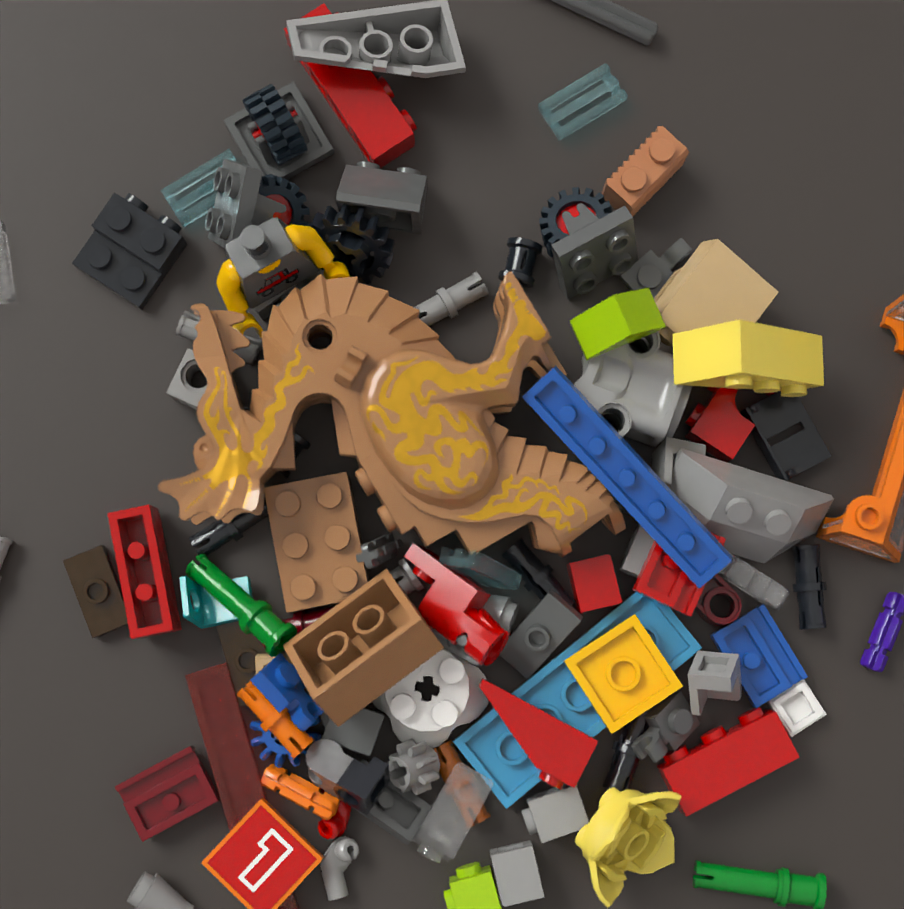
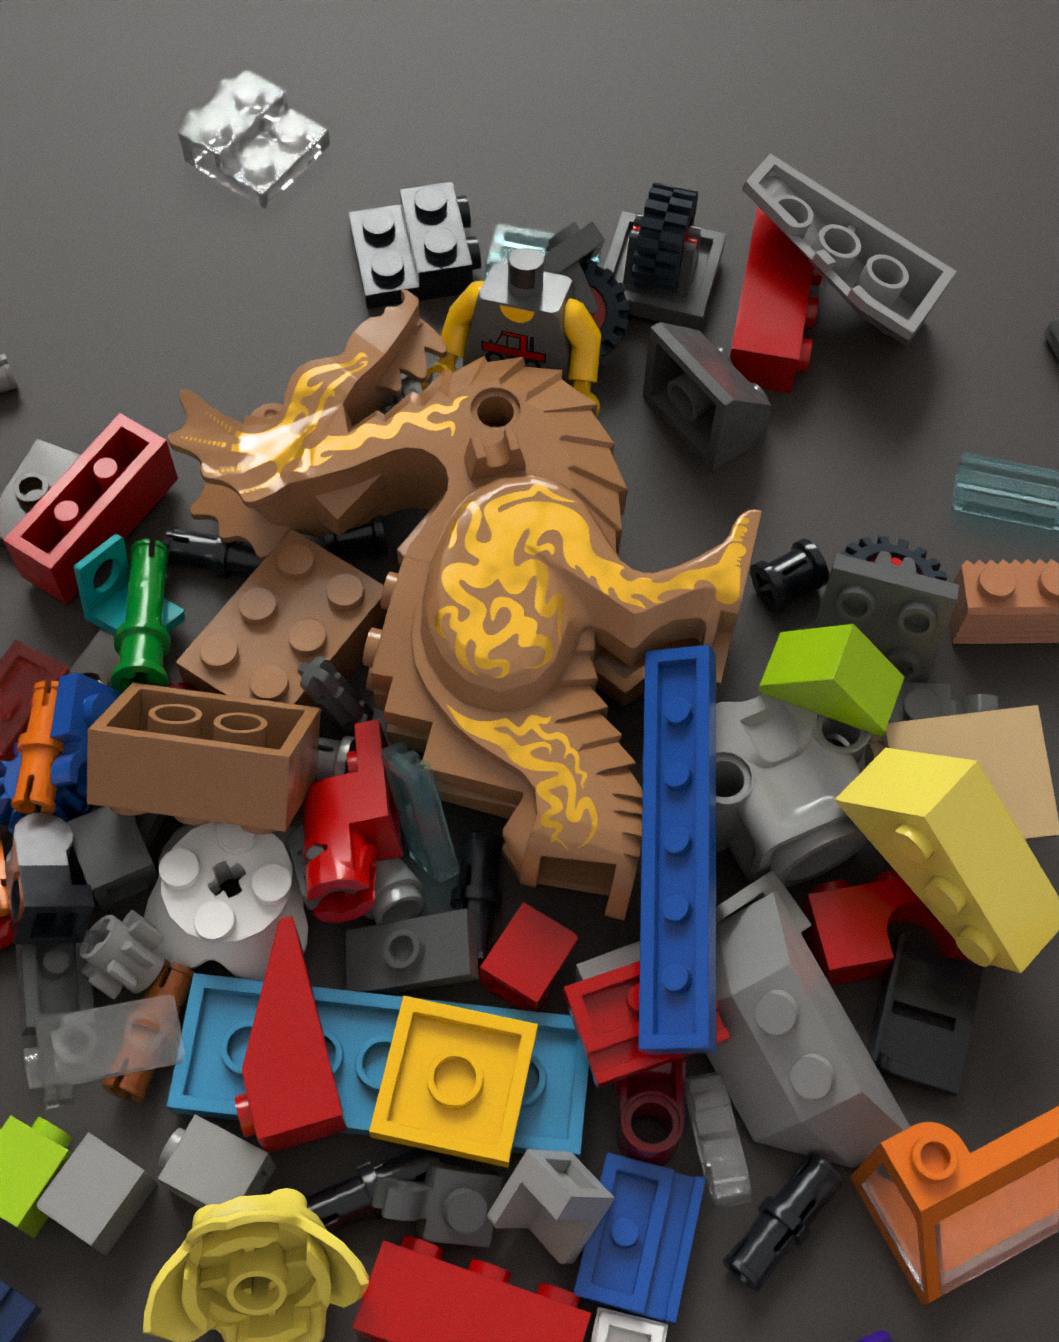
camera: 45 degrees right, 20 degrees down
(353, 239) = (634, 396): black gear -> none
(450, 300) = (661, 545): light grey pin -> none

